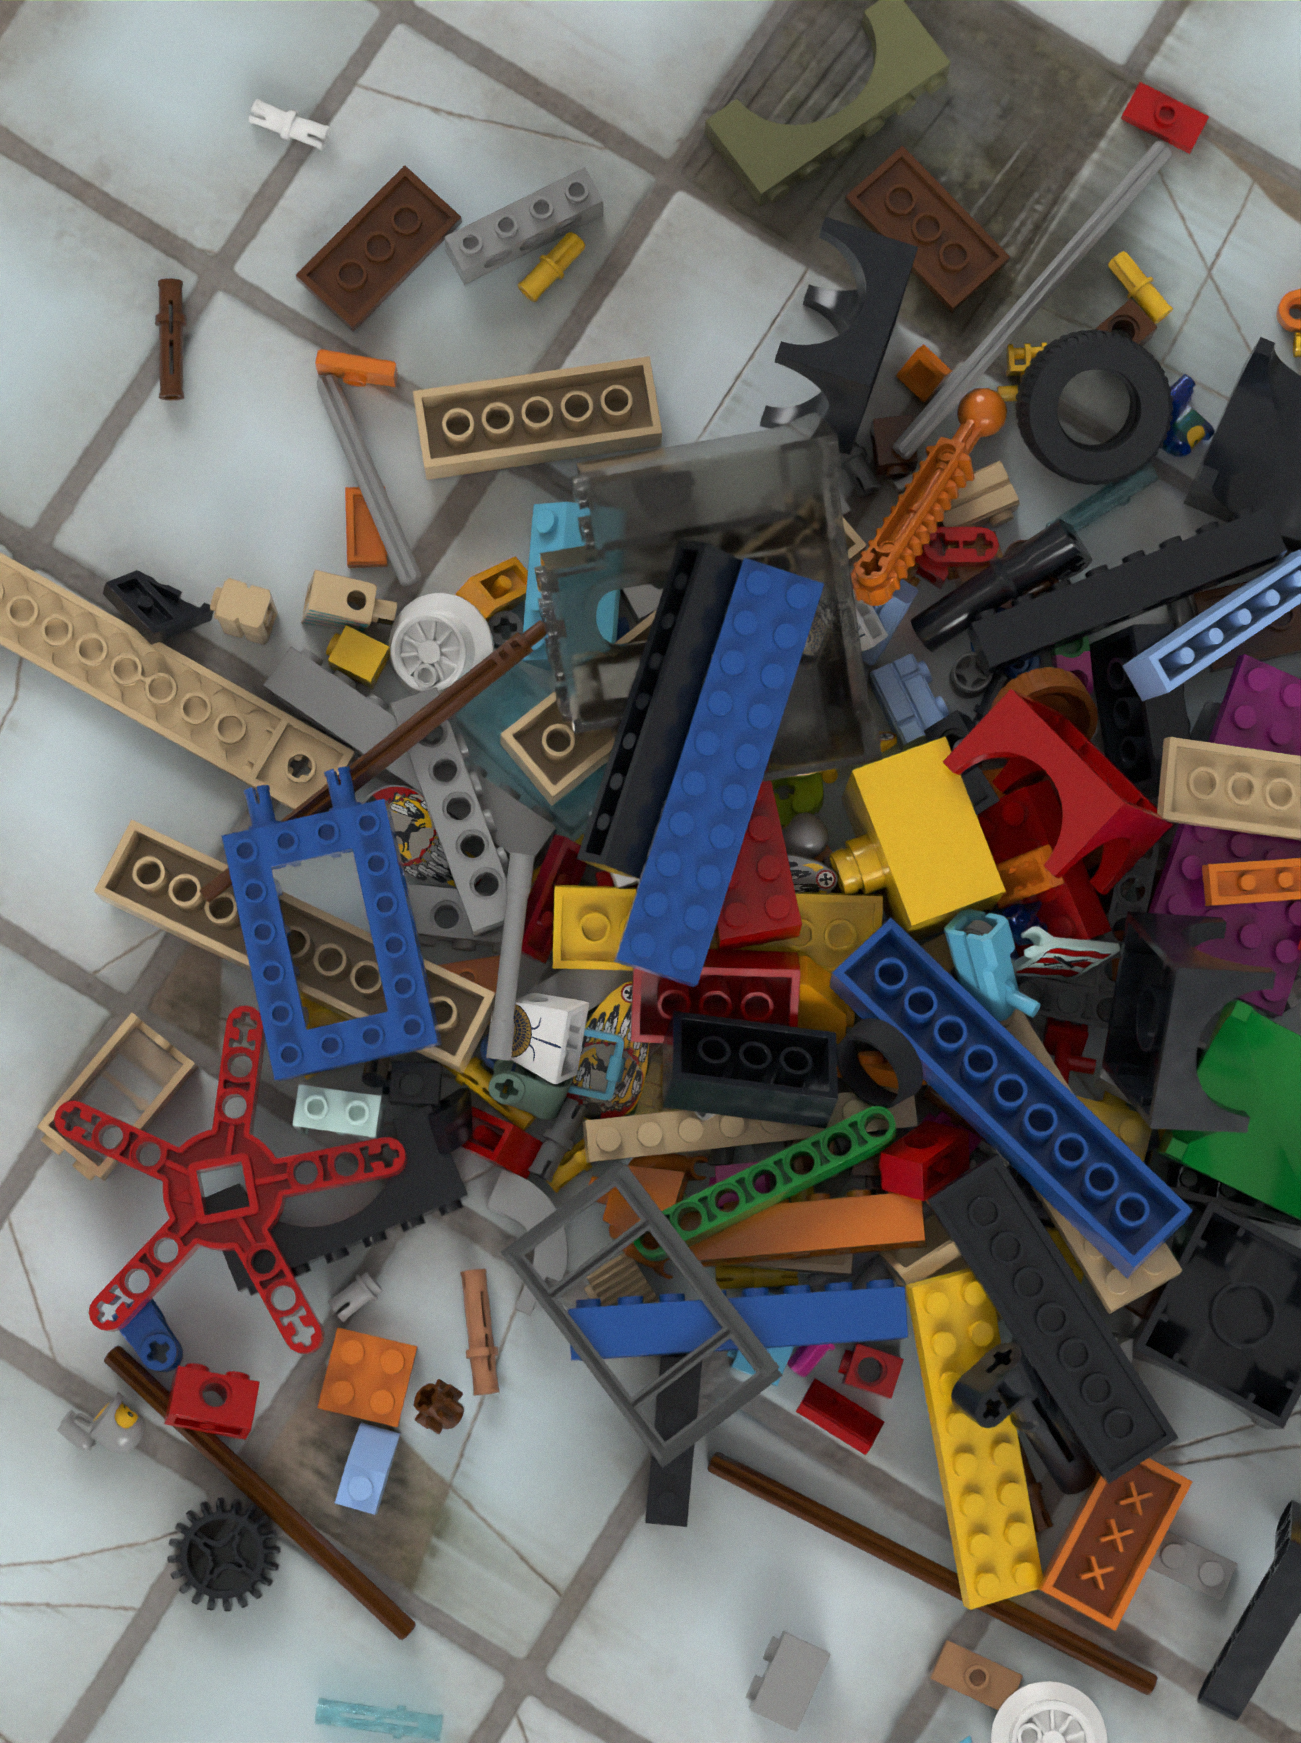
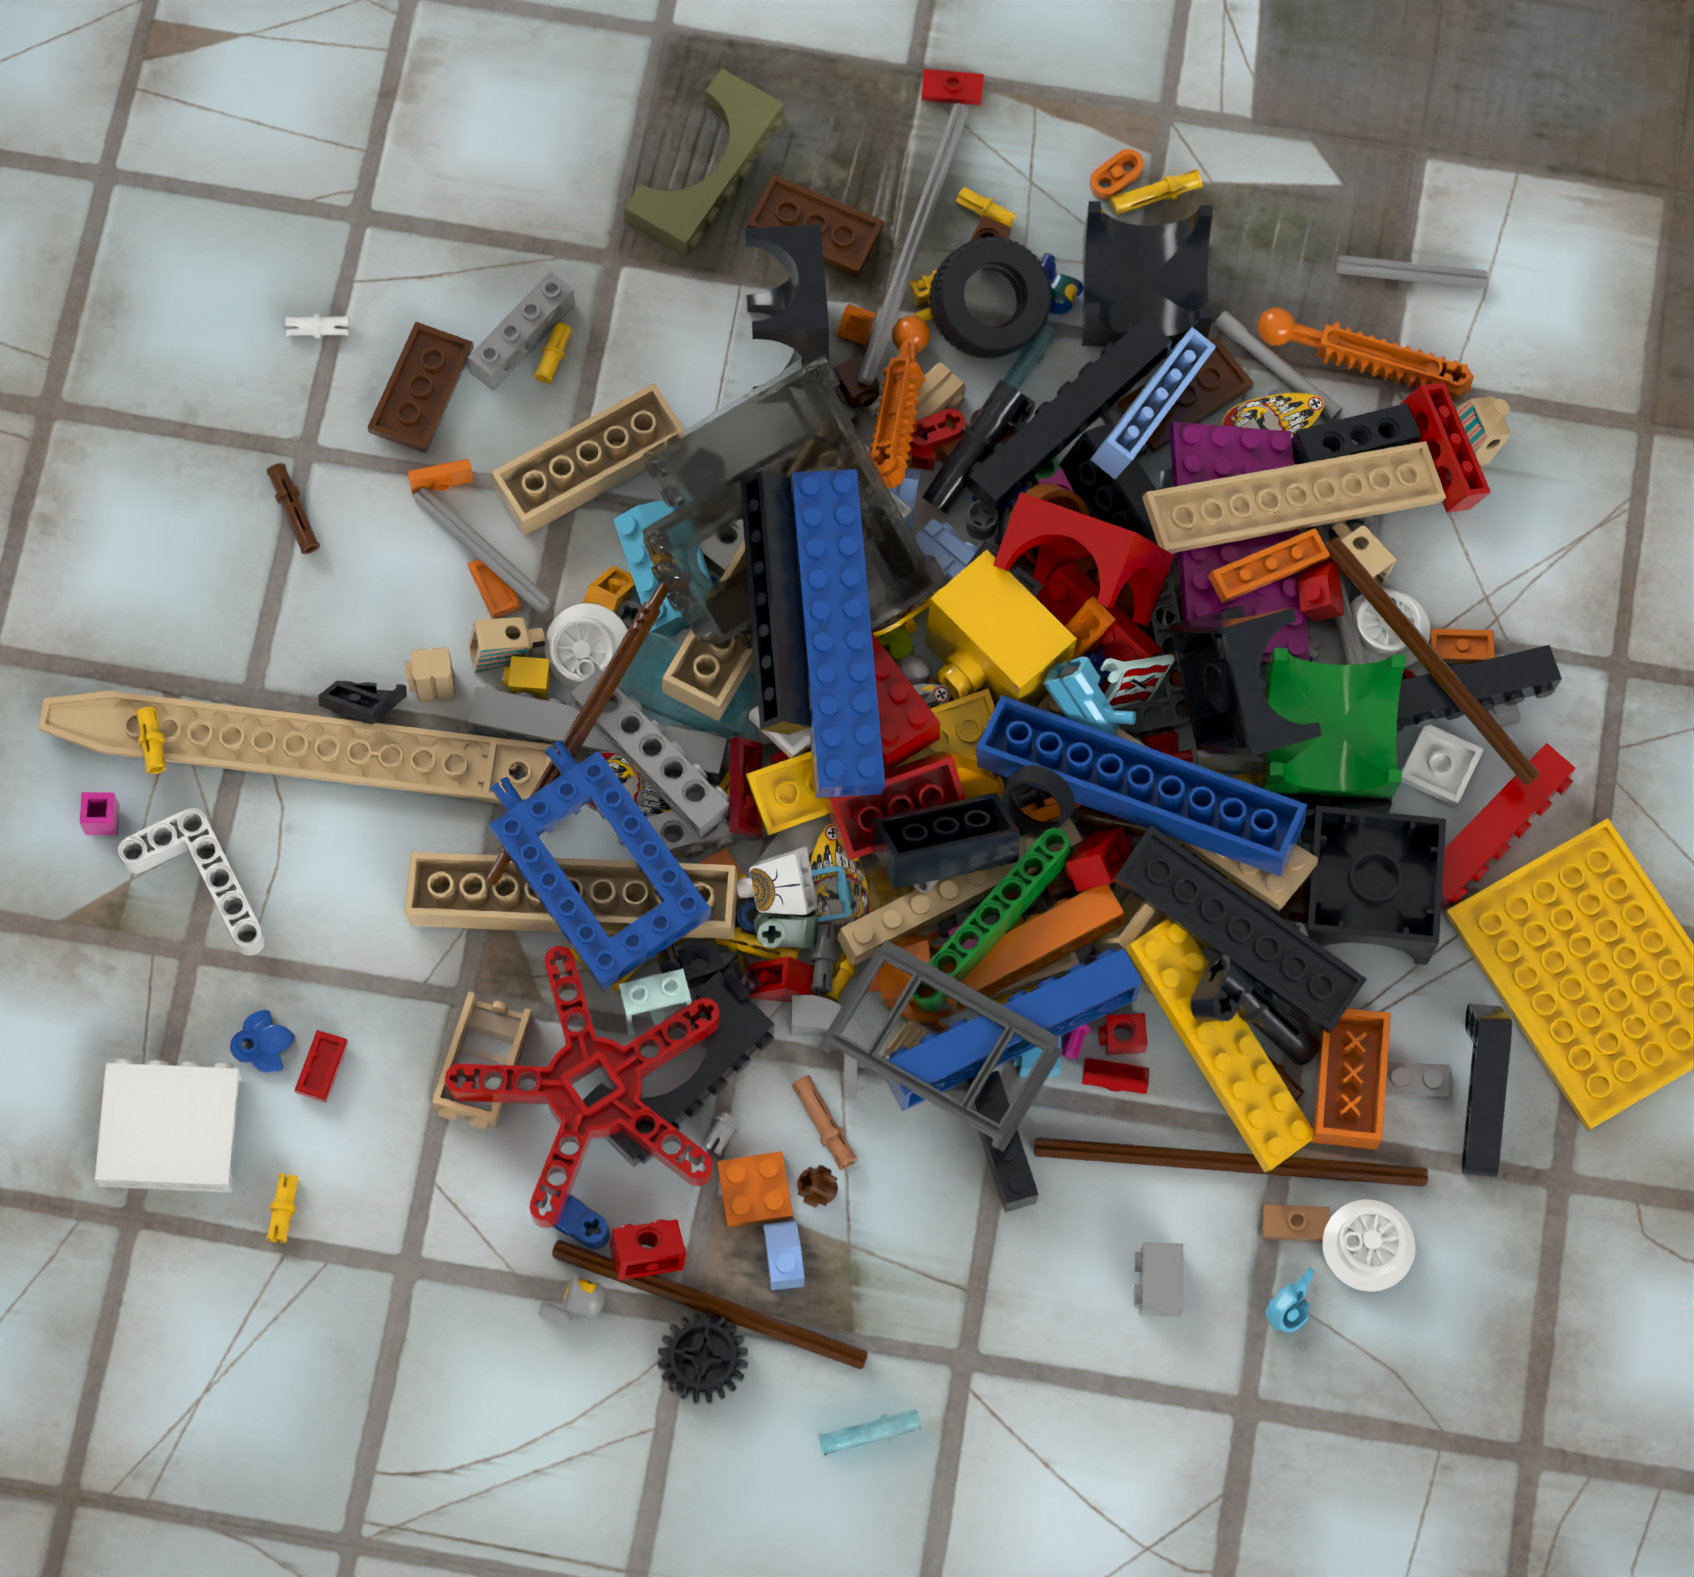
camera: 20 degrees left, 10 degrees down
(502, 1024) = (749, 886): light grey piece -> none

